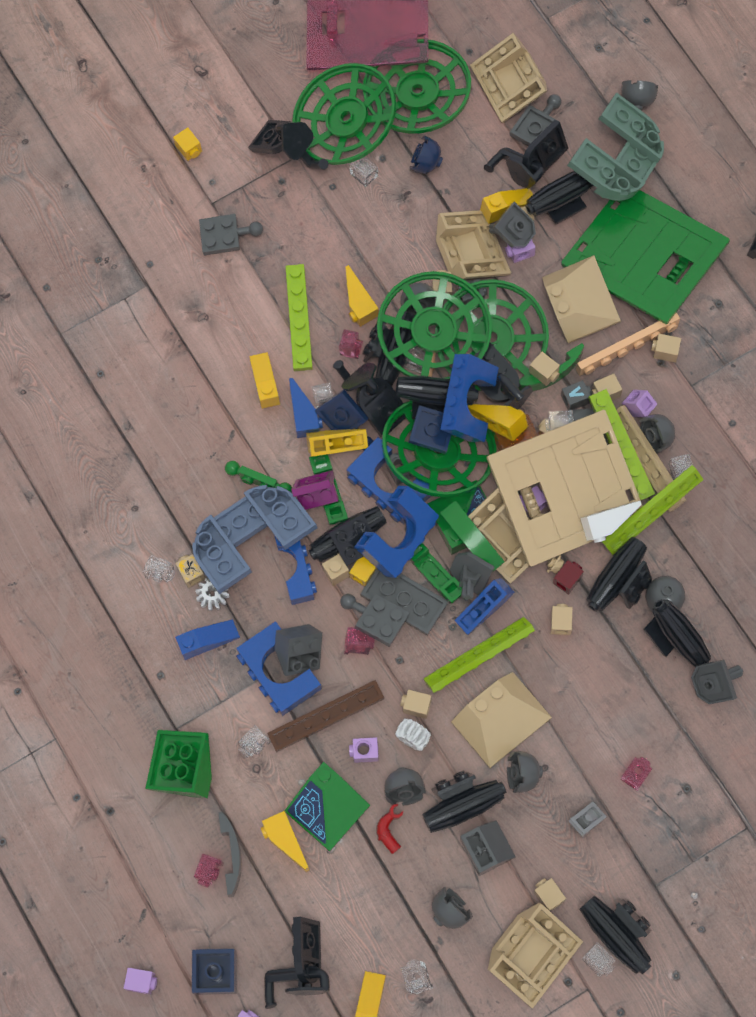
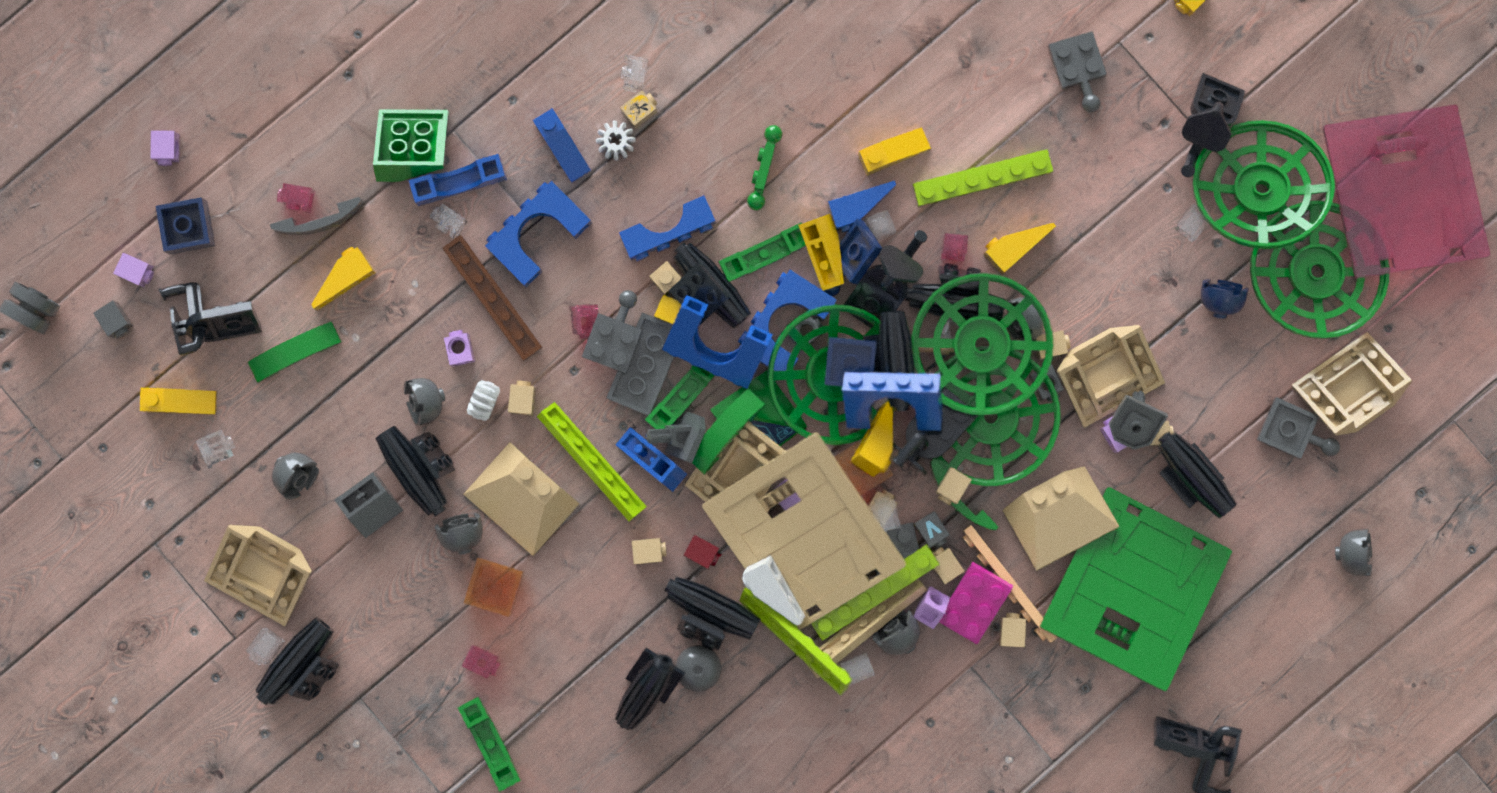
camera: 75 degrees right, 15 degrees up
(220, 725) = (448, 184): none -> blue arch
(261, 507) = (704, 154): sand blue plate -> none
(298, 649) = (562, 252): dark grey slope -> none
(315, 490) = (759, 236): magenta bracket -> none
(326, 806) = (389, 317): green slope -> none
(342, 895) = (294, 351): none -> green slope
(383, 830) = (369, 387): red piece -> none
(497, 203) = (1180, 415): yellow slope -> none
(537, 159) = (1241, 436): black plate -> none
(549, 894) = (328, 581): tan brick -> none
(554, 564) = (713, 535): tan plate -> none
(574, 750) = (494, 587): none -> clear orange brick
(587, 819) = (417, 612): light grey slope -> none
(626, 174) = (1274, 567): sand green plate -> none
(640, 369) = (975, 602): none -> dark pink plate
(709, 776) = (490, 743): none -> green slope
(714, 681) = (599, 738): dark grey piece -> none

